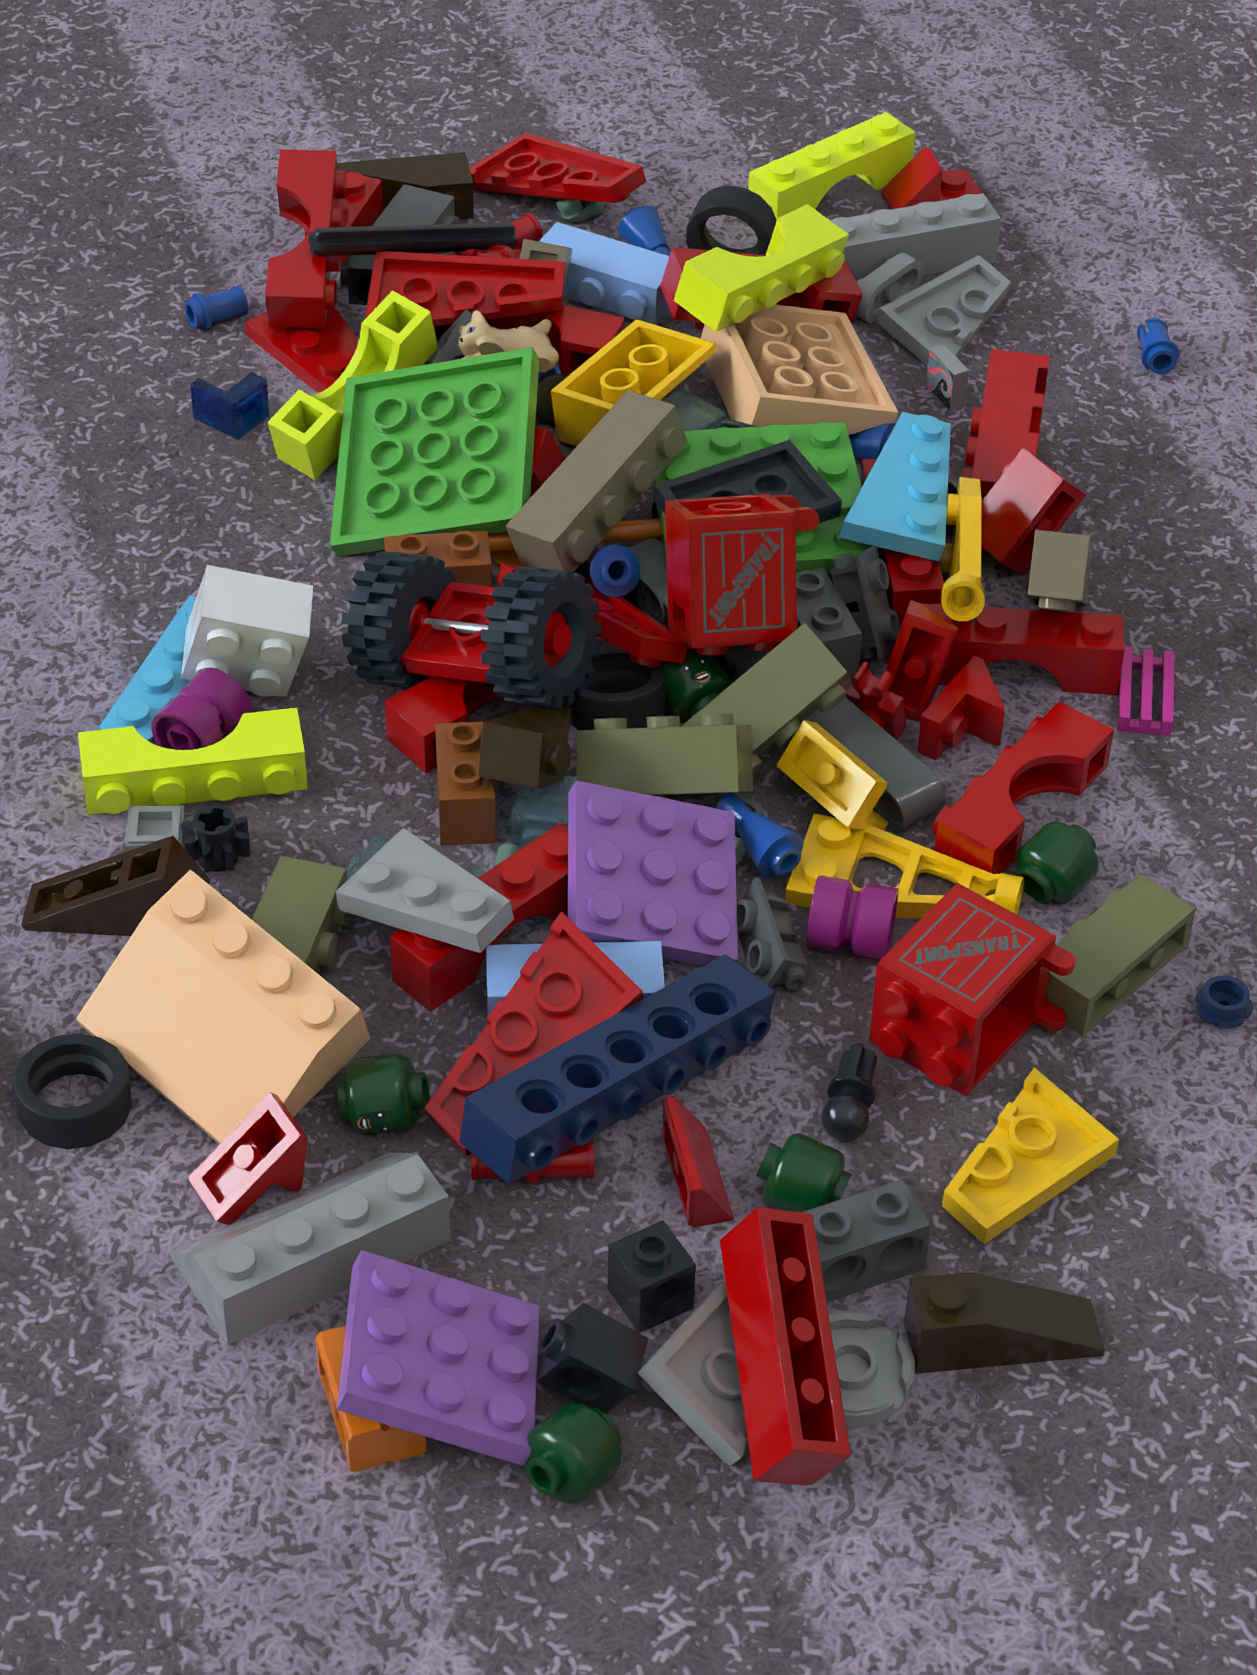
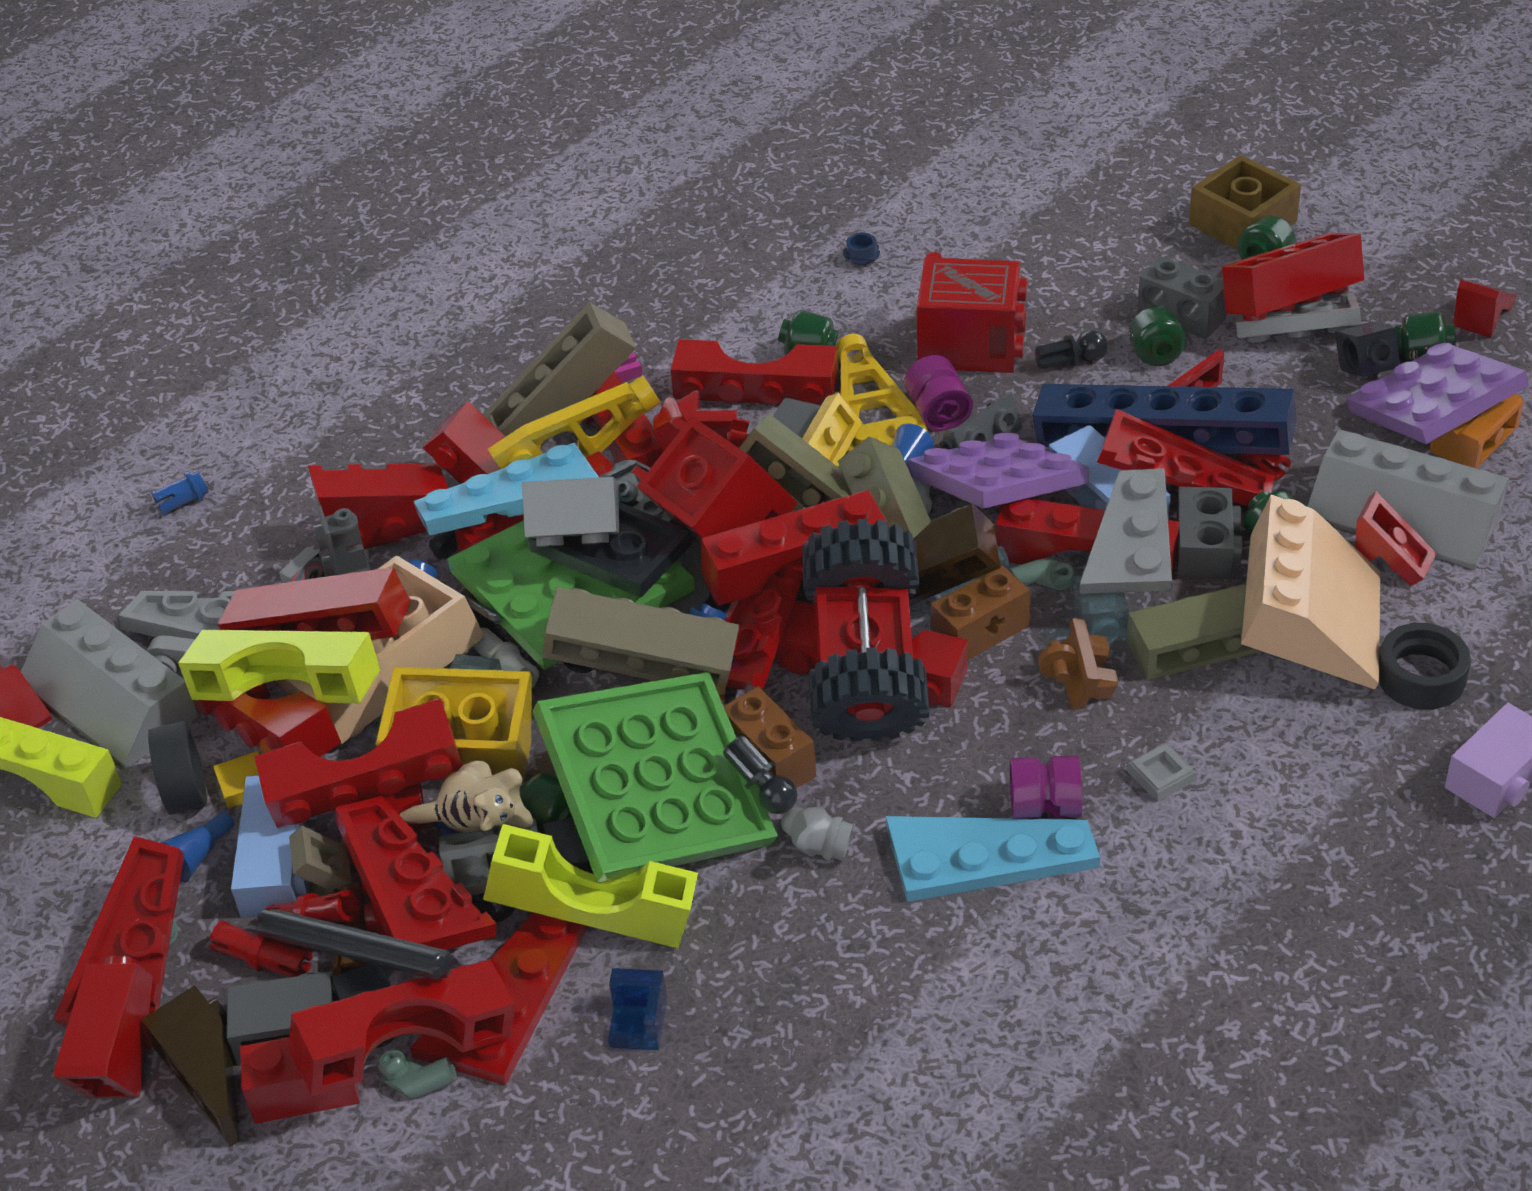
camera: 115 degrees left, 0 degrees up
(110, 893) = (1252, 737): dark brown slope -> none
(212, 308) = (492, 1115): blue pin -> none
(216, 838) = (1148, 718): black gear -> none
(248, 629) = (960, 775): white brick -> none
(255, 759) = (1135, 806): neon yellow arch -> none
(308, 561) = (817, 832): none -> light grey animal
(334, 817) = (1076, 665): none -> dark orange hips
(359, 537) = (776, 792): none -> black axle
(420, 1019) = (1207, 533): none -> dark grey brick
(457, 120) = (105, 1032): none -> red slope
(589, 1566) = (1480, 307): none -> red slope
(591, 308) = (305, 785): none -> red arch
(621, 636) = (745, 557): none -> red arch
(651, 1276) = (1287, 356): black brick -> none
(788, 449) = (571, 509): none -> light grey slope
(836, 323) = (338, 603): none -> brick
(886, 1377) = (1264, 236): none -> dark green head
(948, 381) = (336, 534): none -> dark grey hinge
(994, 1322) = (1183, 238): dark brown slope -> none
(1008, 1421) = (1239, 196): none -> pearl gold brick
(1027, 1159) = (1064, 273): yellow wing -> none
(1119, 950) = (863, 292): olive brick -> none

